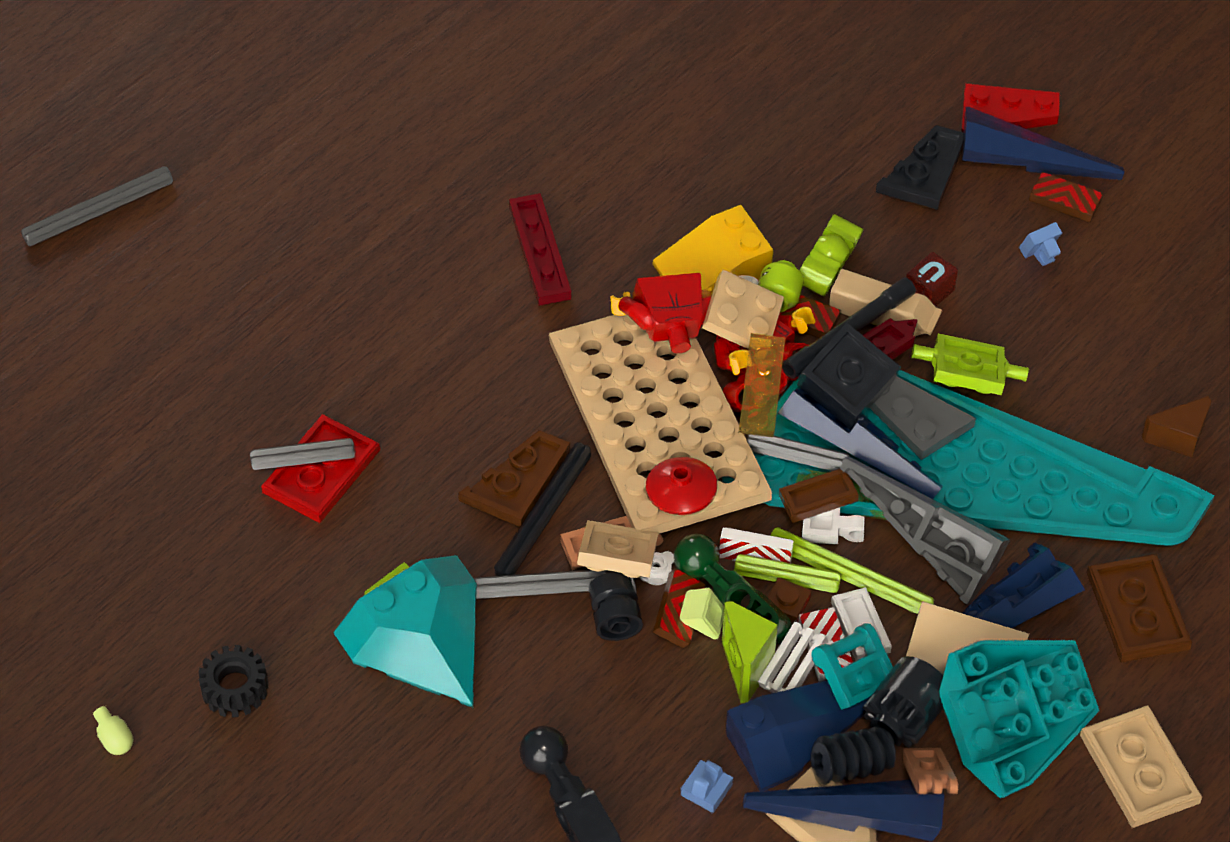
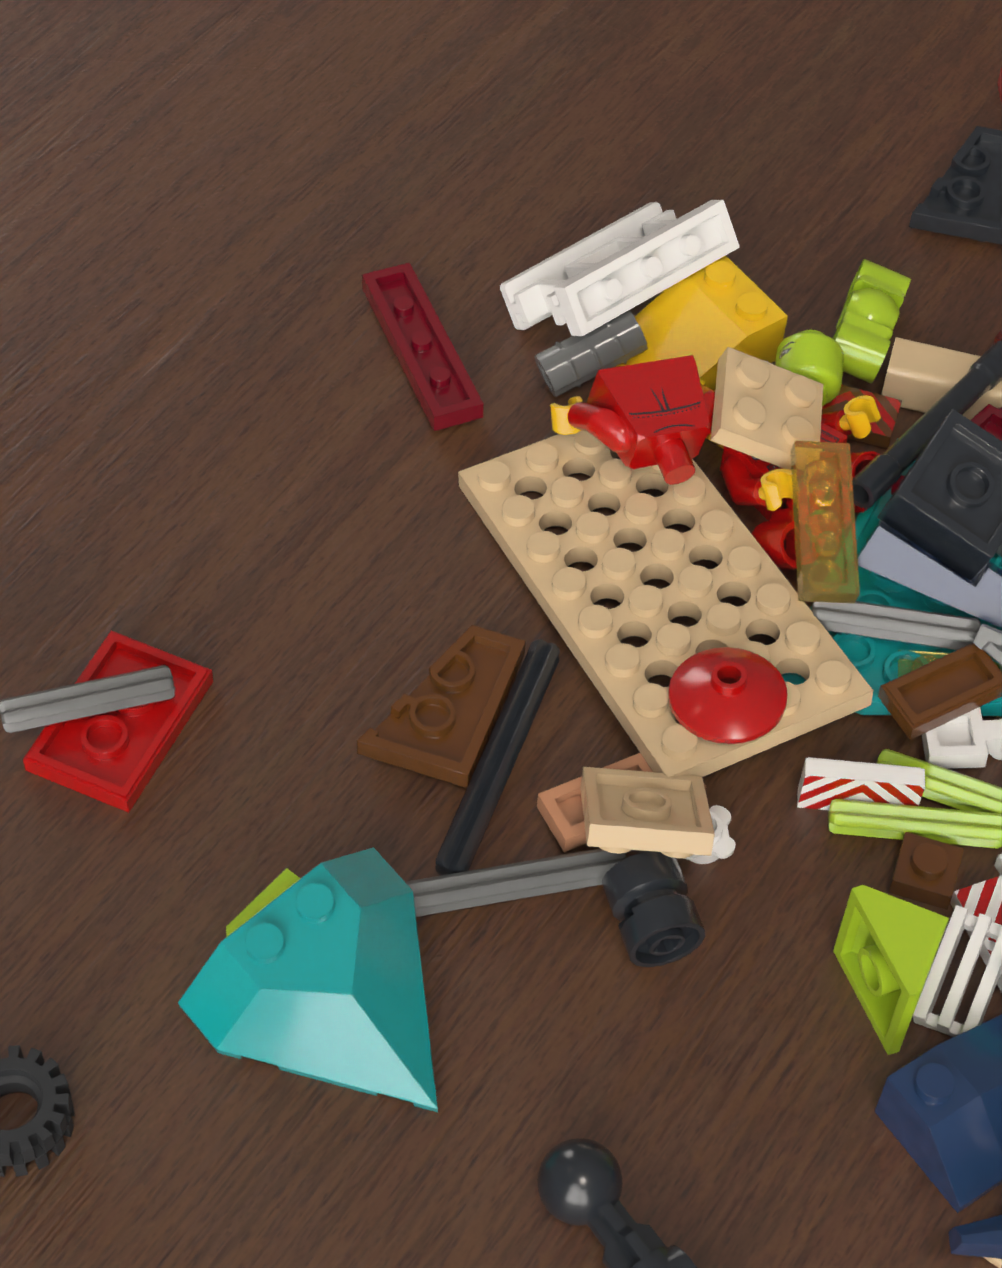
camera: 10 degrees left, 0 degrees up
(645, 262) = (580, 357): none -> dark grey axle
(668, 619) = (756, 901): reddish brown tile -> none
(672, 207) = (619, 267): none -> white fence
(700, 557) = (773, 813): dark green beam -> none
(703, 612) = (797, 903): yellowish green slope -> none
(707, 785) = (867, 1213): medium blue tile -> none

